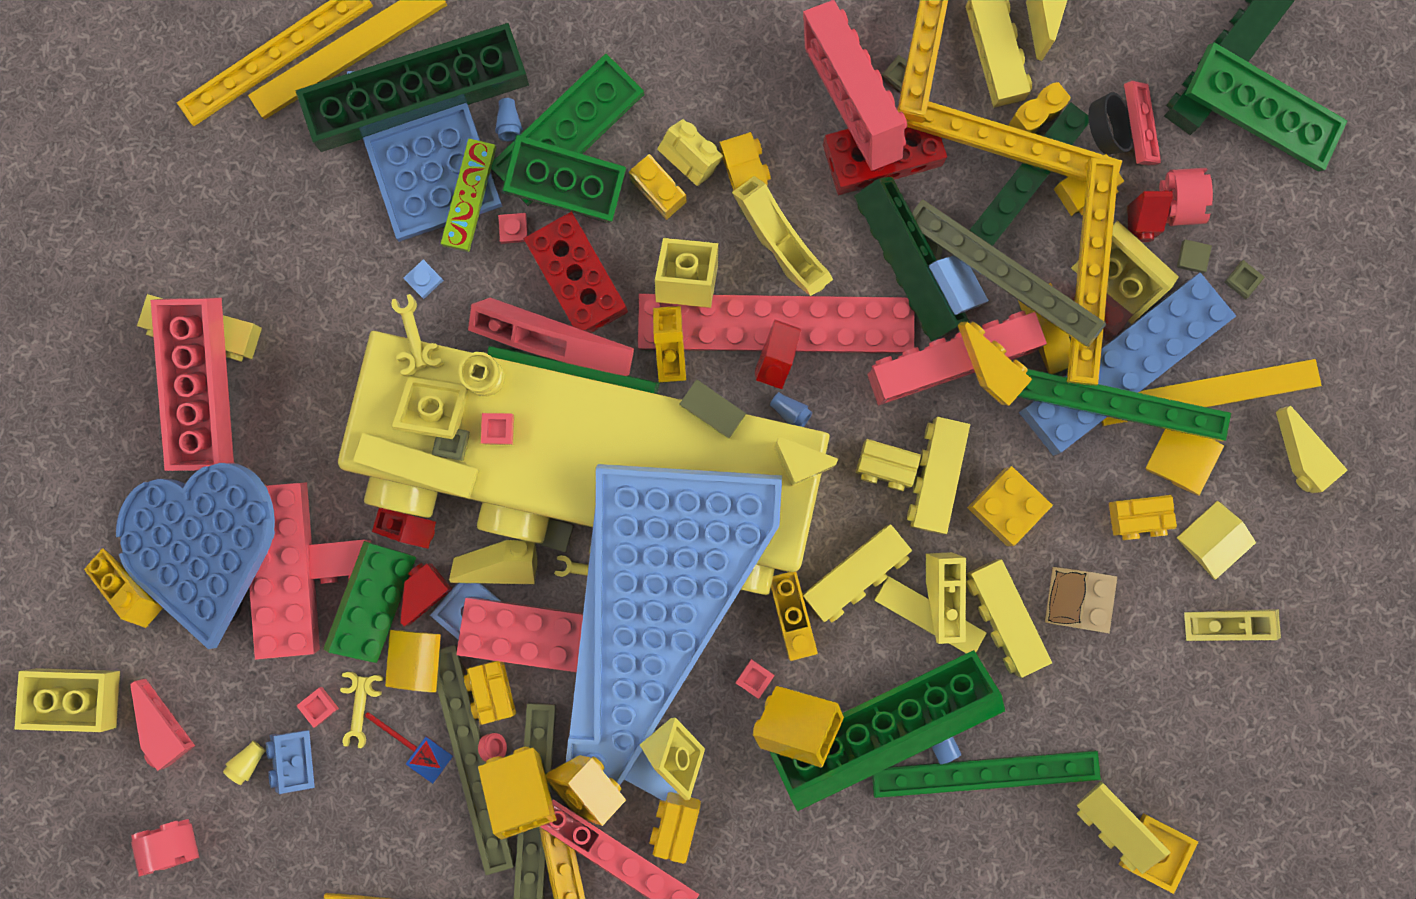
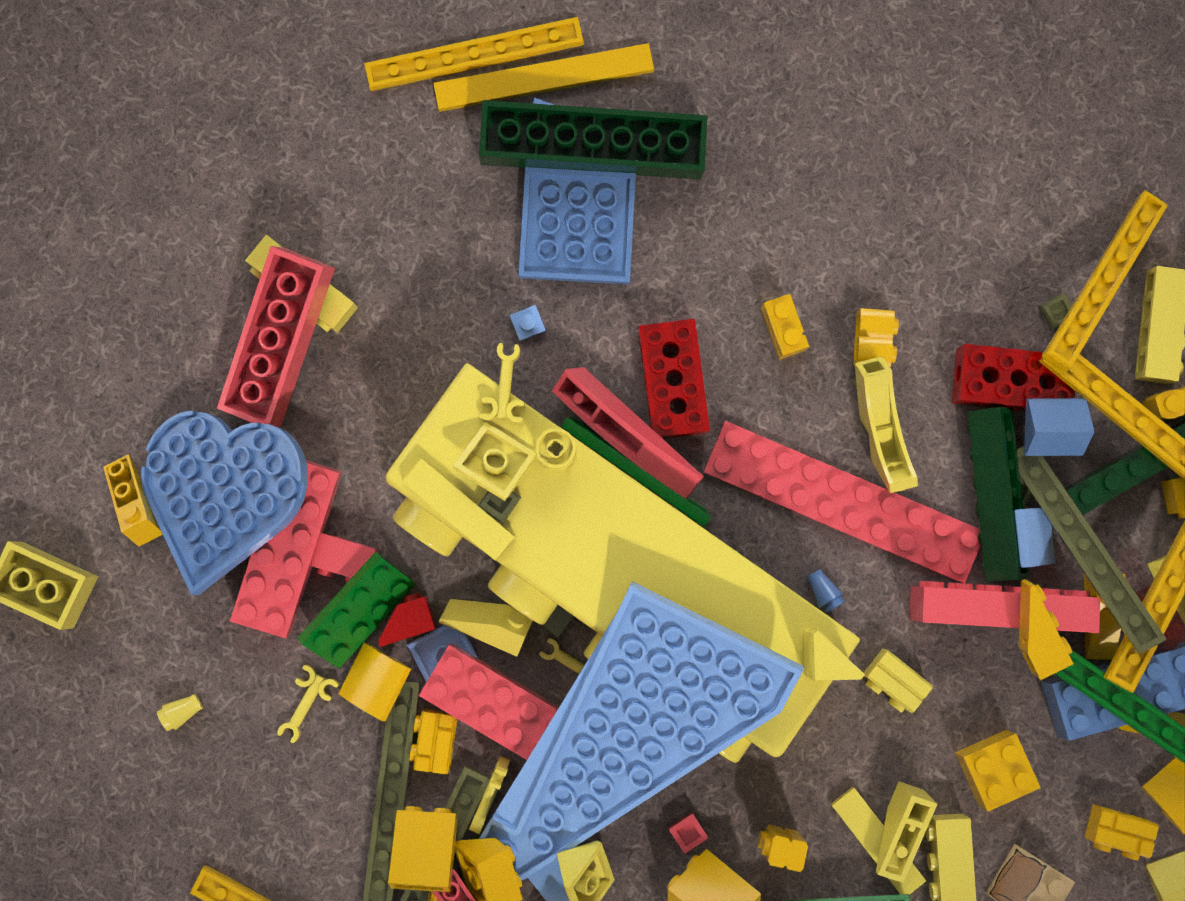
camera: 20 degrees right, 0 degrees up
(158, 730) = (112, 649): coral slope -> none
(164, 847) = (74, 764): coral brick -> none
(291, 762) = (222, 728): medium blue bracket -> none
(317, 707) = (267, 687): coral plate -> none
(404, 527) = (415, 553): red slope -> none
(428, 757) = (350, 778): piece -> none
(468, 195) = (603, 262): lime tile -> none
(492, 746) = (415, 793): coral tile -> none
(497, 428) = (549, 506): coral plate -> none
(508, 121) = (667, 207): medium blue cone -> none
(513, 228) = (631, 309): coral plate -> none
(559, 706) = (494, 785): none -> light yellow bar
(563, 179) = (699, 285): green brick -> none
(581, 112) = (719, 236): green plate -> none
(669, 343) = (736, 481): yellow bracket -> none
(686, 272) = (780, 421): light yellow brick -> none
(690, 152) = (829, 306): light yellow brick -> none
(712, 409) = (760, 571): olive tile -> none
(777, 354) = (834, 534): red slope -> none
(793, 616) = (748, 792): yellow slope -> none
(843, 655) = (783, 847): none -> yellow brick
(854, 85) = (1014, 309): coral brick -> none
(856, 573) = (825, 773): light yellow brick -> none
(937, 176) = (1057, 427): none -> medium blue slope
(939, 475) = (941, 712): light yellow brick -> none

